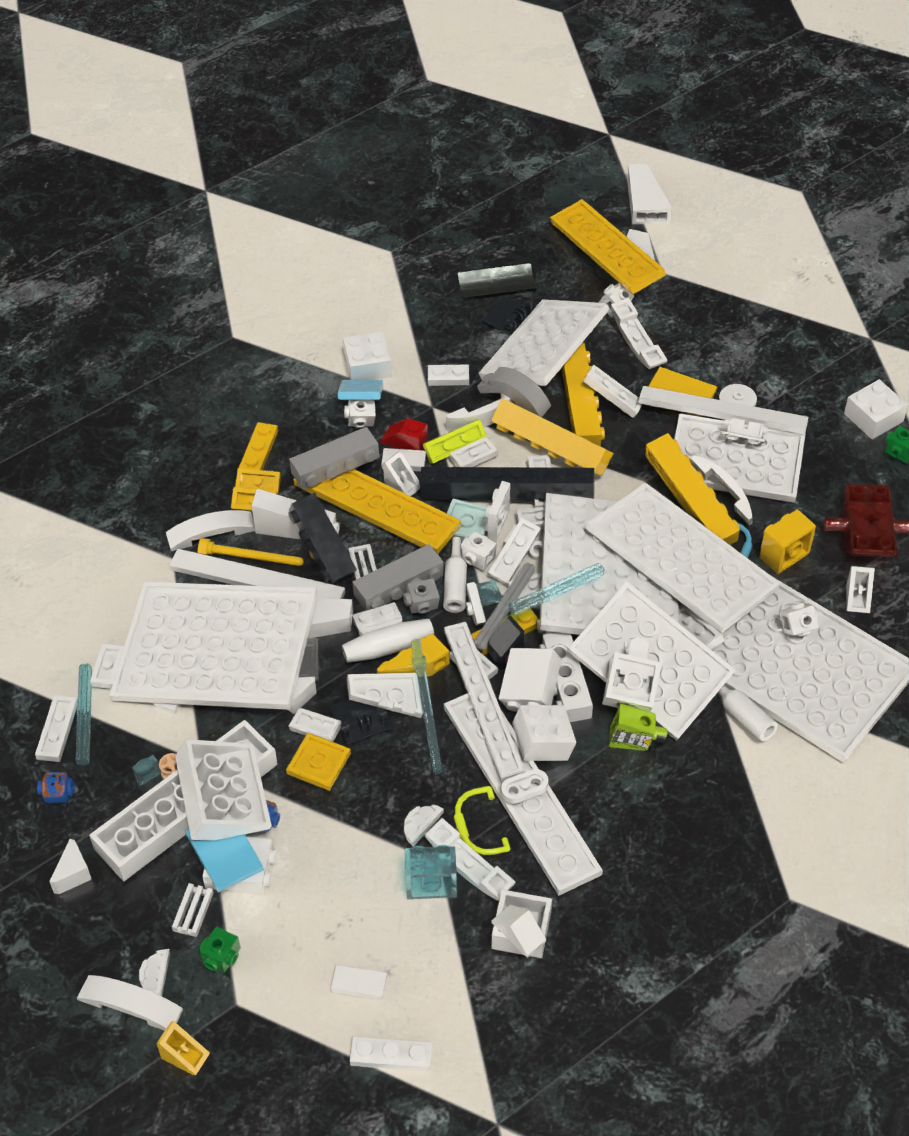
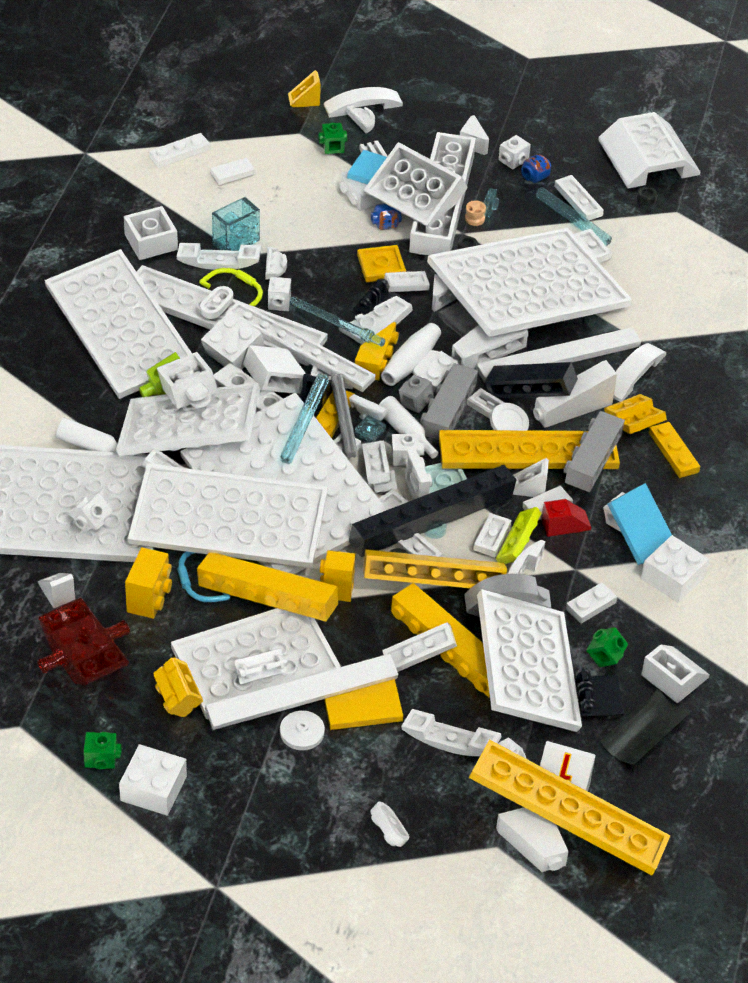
camera: 140 degrees right, 5 degrees down
(59, 814) = (514, 152): none -> white brick
(207, 548) = (620, 353): yellow piece -> none
(365, 537) = (509, 417): none -> white piece
(443, 295) = (672, 672): none -> white slope
(450, 774) = (279, 289): none -> white brick
(474, 331) = (607, 647): none -> green brick
(520, 929) = (146, 209): white slope -> none
(586, 272) = (568, 764): none -> white slope
(629, 469) = (339, 571): none -> yellow brick
(633, 827) = (116, 320): none -> white plate
(646, 197) = (598, 928): white slope -> none
(708, 468) = (241, 608): white slope -> none
(728, 307) = (390, 825): none -> white plate
(815, 458) = (177, 687): none -> yellow brick

